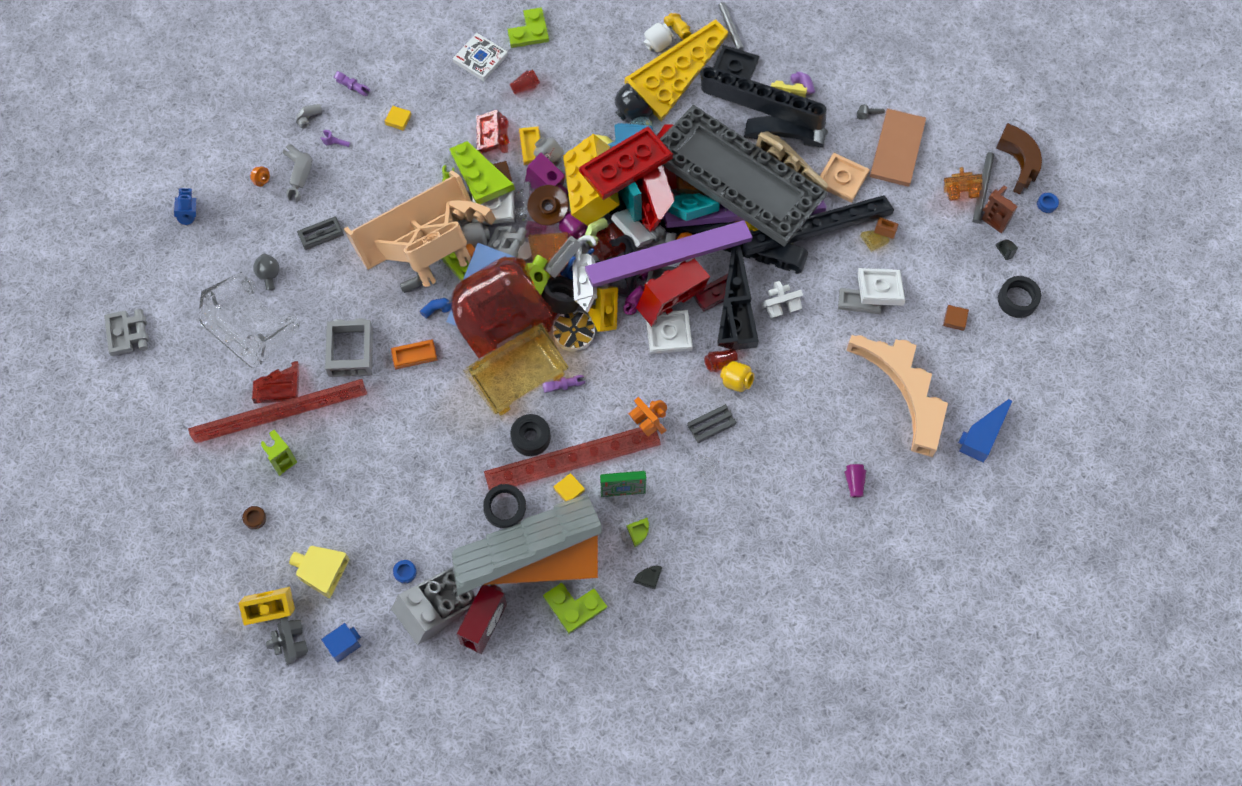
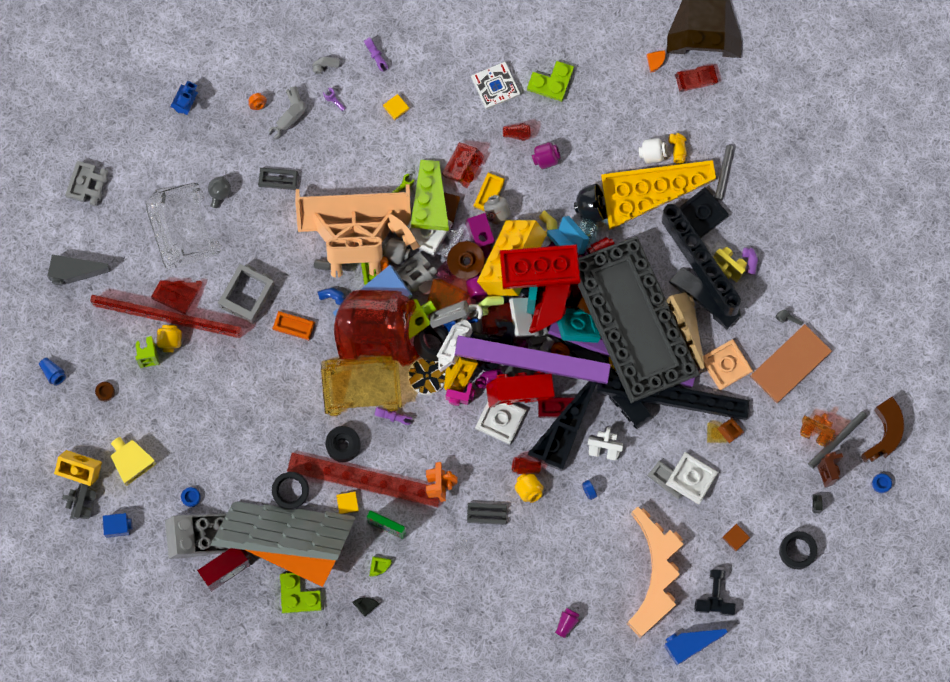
camera: 30 degrees right, 10 degrees up
(155, 417) = (71, 270): none -> dark grey slope
(187, 527) = (53, 373): none -> blue cone
(293, 429) = (169, 338): none -> yellow head
(564, 87) = (546, 155): none -> magenta head
(618, 331) = (456, 397): none -> dark pink bracket
(795, 347) = (589, 490): none -> blue tile
(979, 383) = (715, 603): none -> black bar

